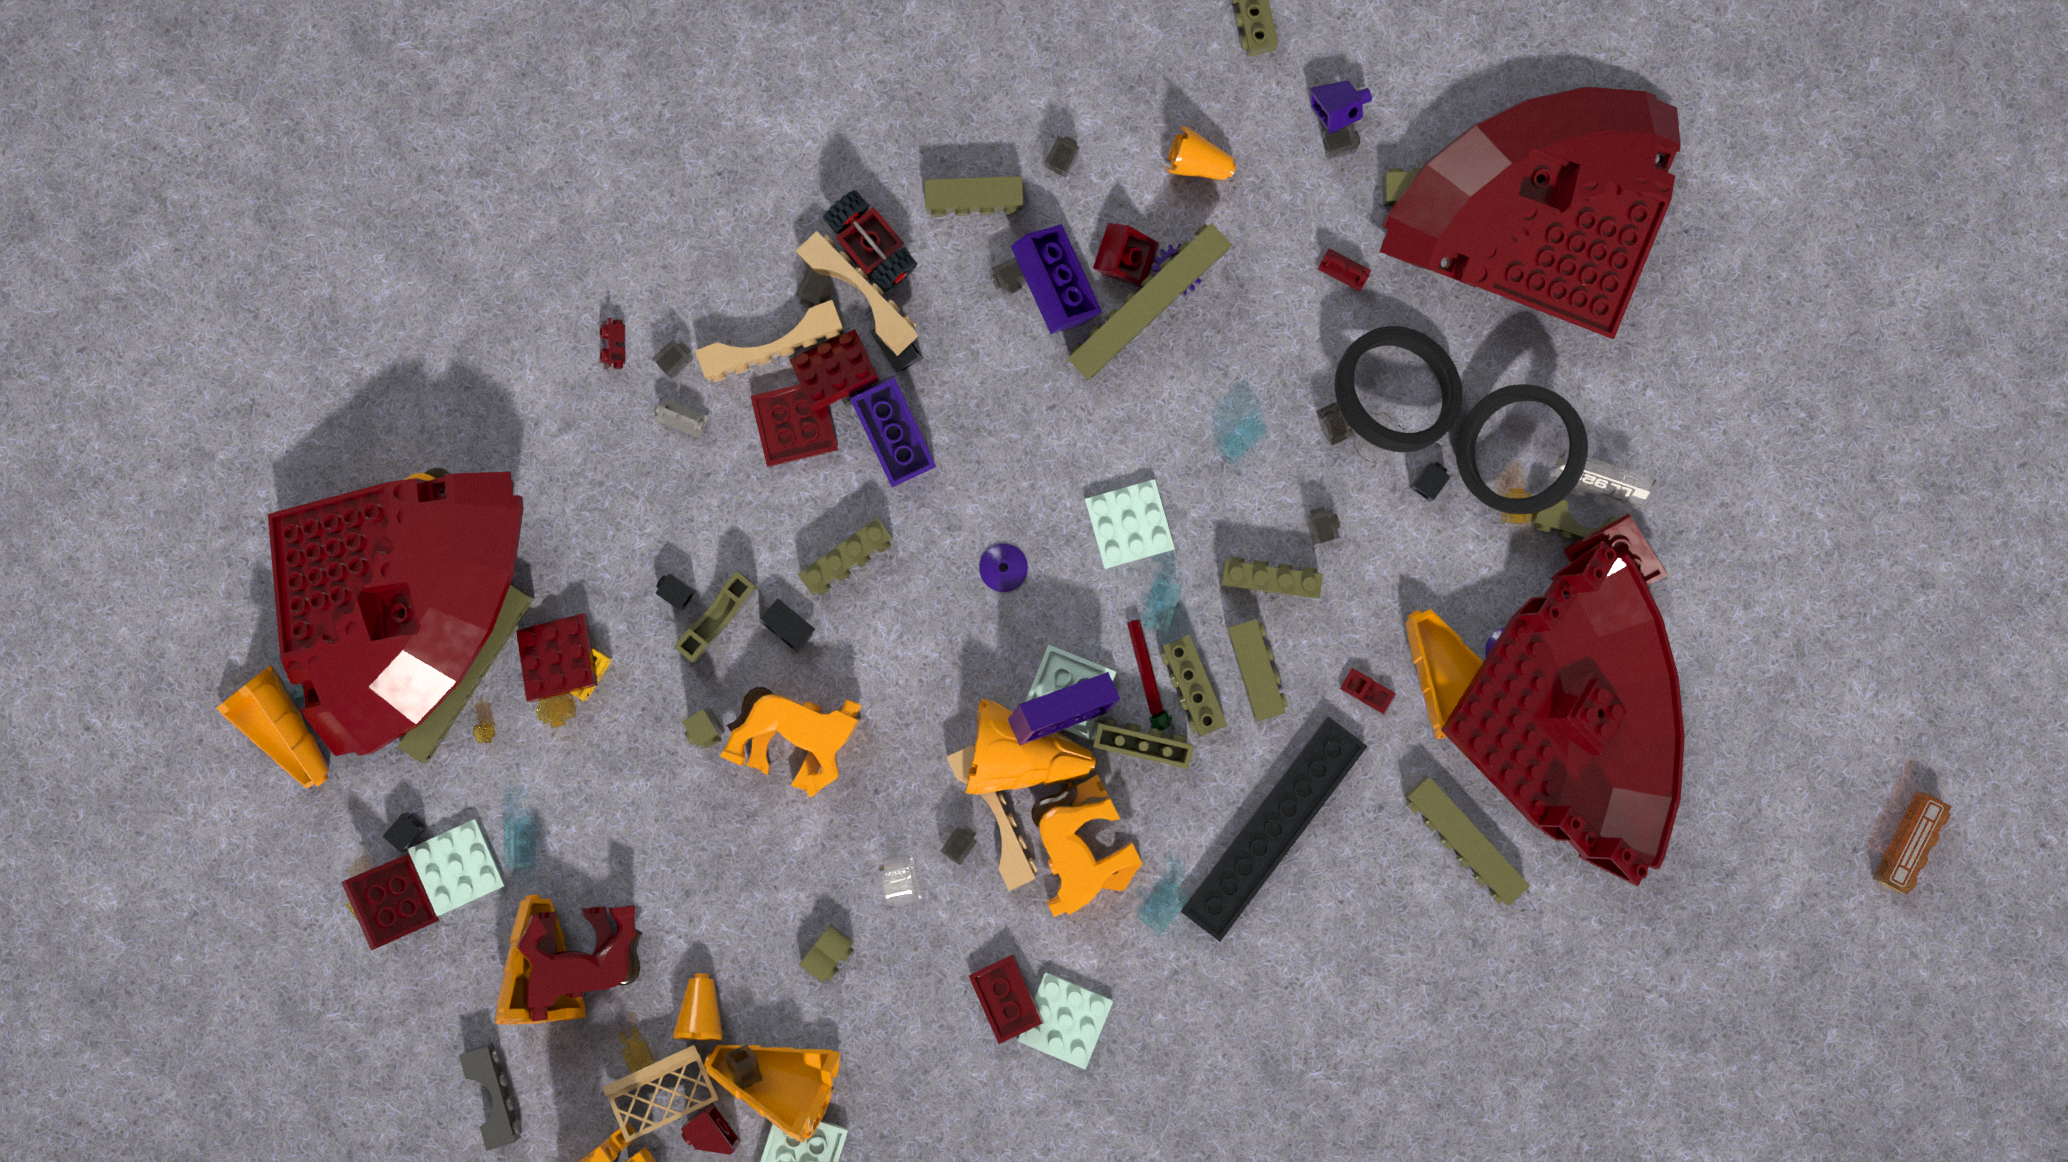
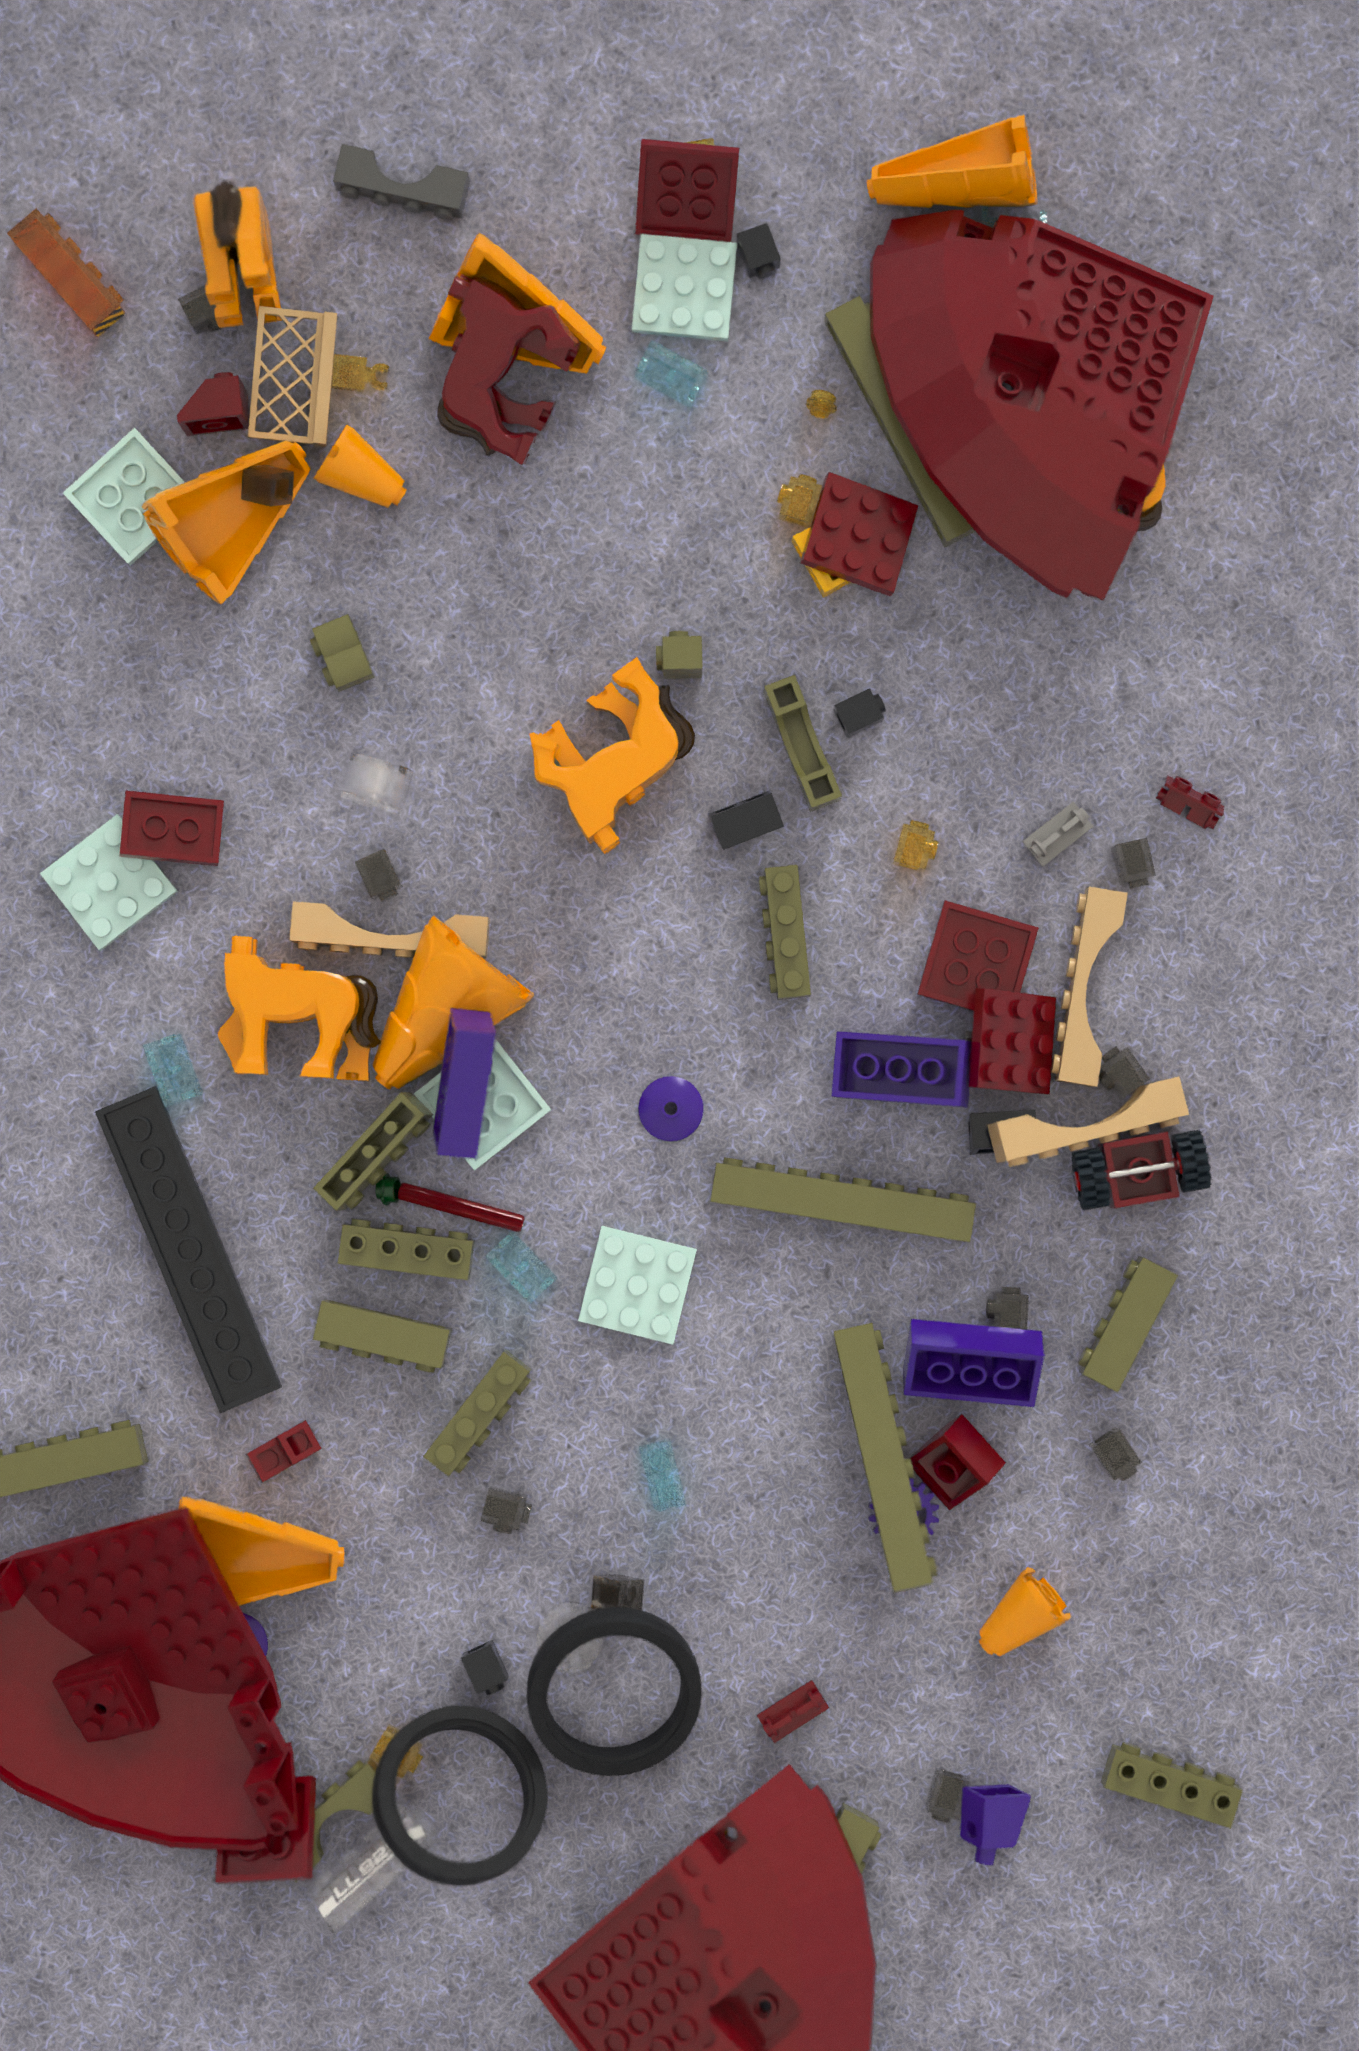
camera: 125 degrees right, 0 degrees up
(742, 505) = (915, 846): none -> clear yellow brick
(1000, 421) = (843, 1202): none -> olive brick

